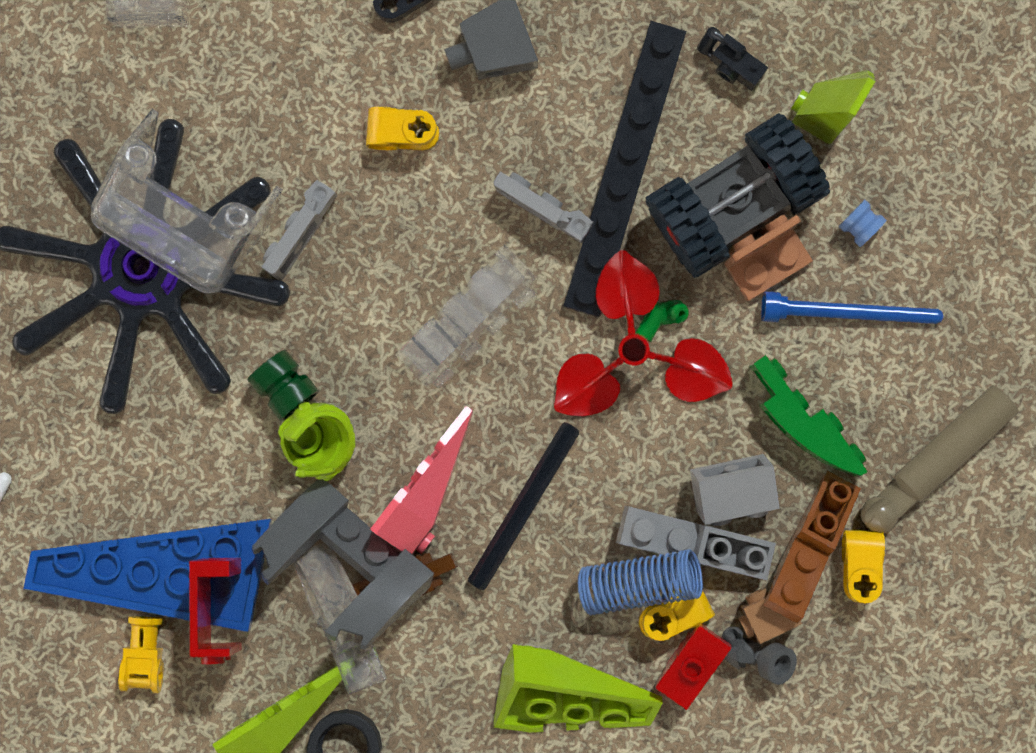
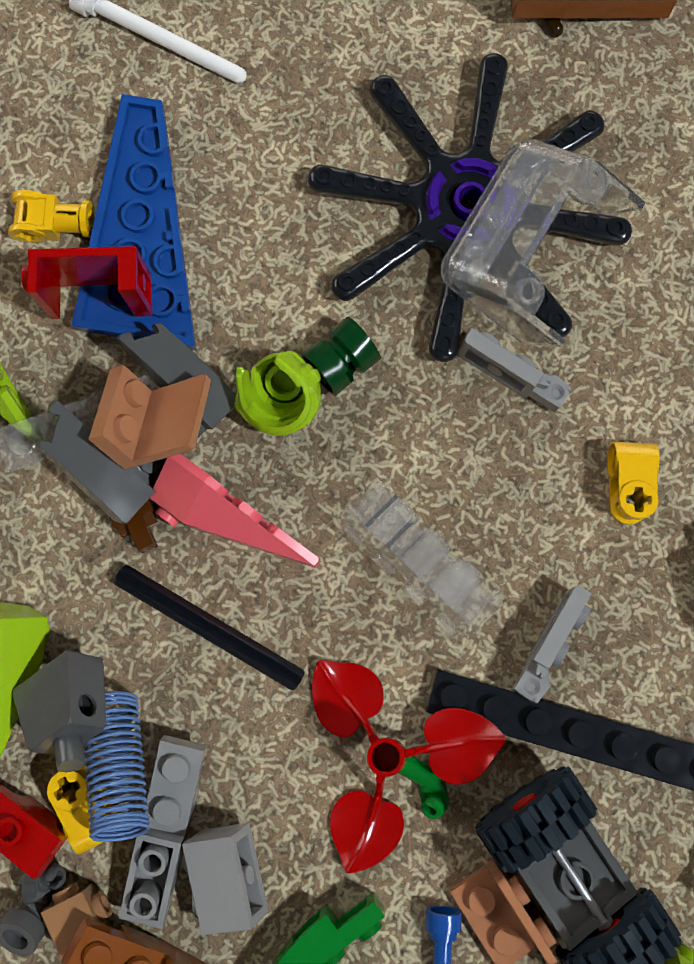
camera: 85 degrees right, 5 degrees down
(345, 549) = (148, 424): none -> nougat bracket
(590, 625) = (63, 708): none -> dark grey torso

